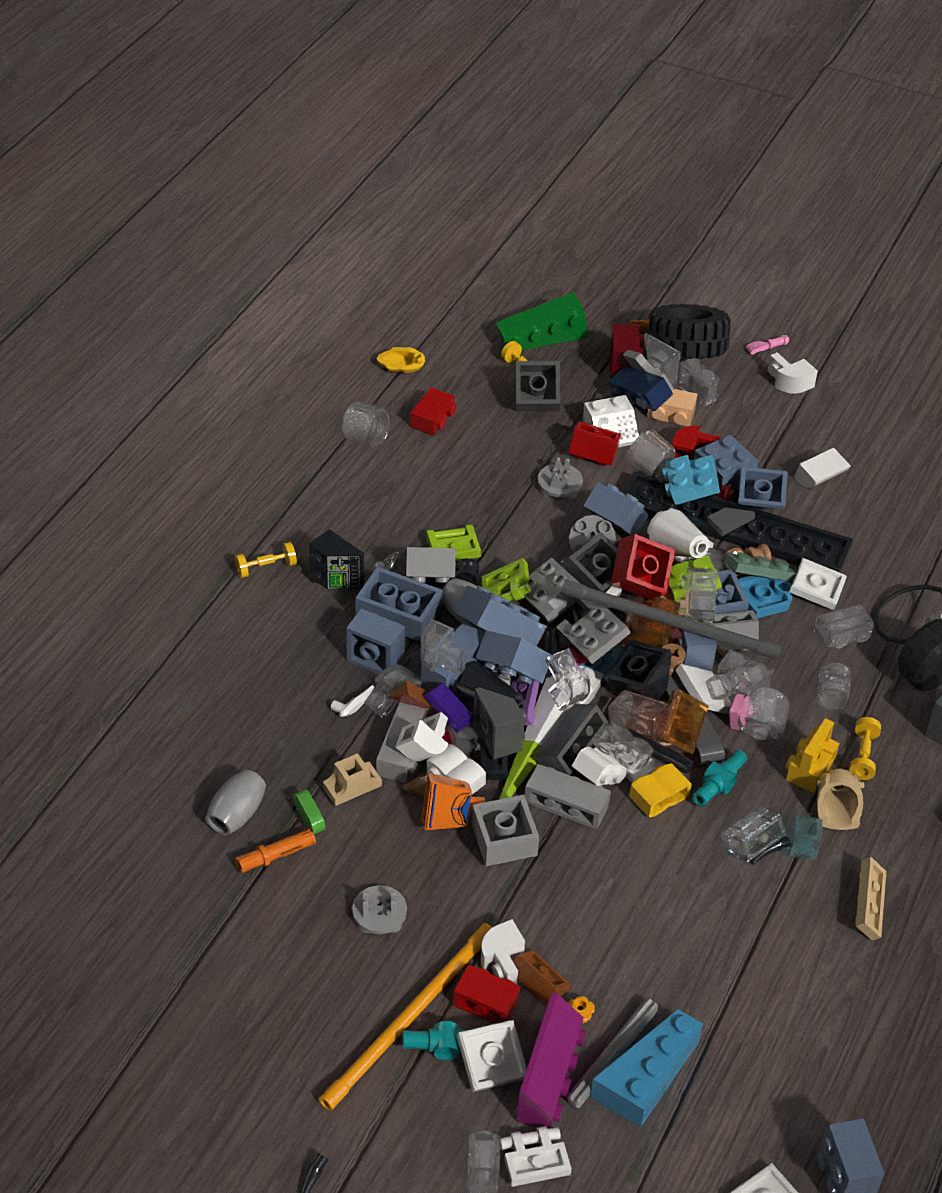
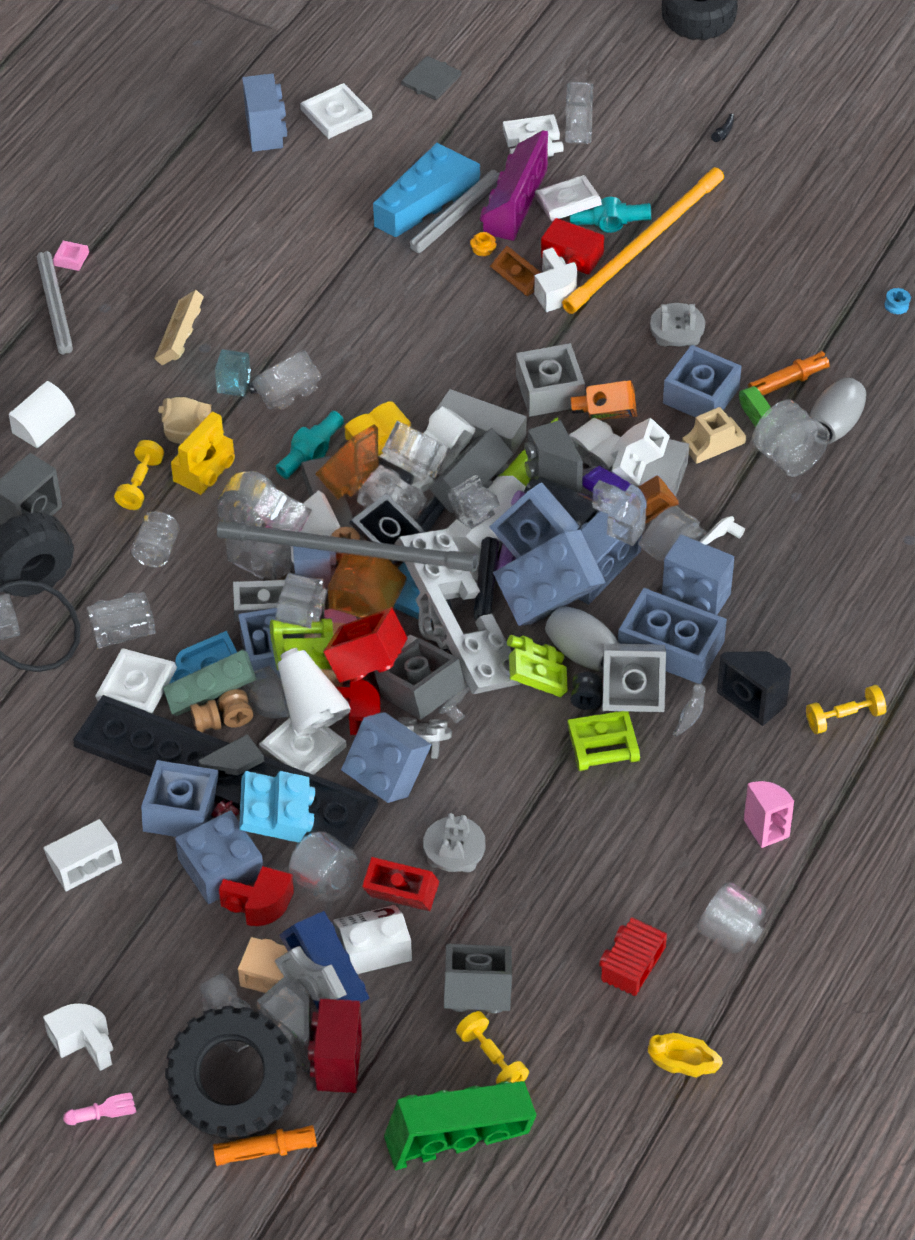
camera: 175 degrees left, 5 degrees up
(156, 947) = (897, 307): none -> dark azure bush
(283, 763) = (790, 438): none -> clear wheel
(334, 478) = (768, 812): none -> bright pink brick
(360, 825) = (701, 382): none -> sand blue brick

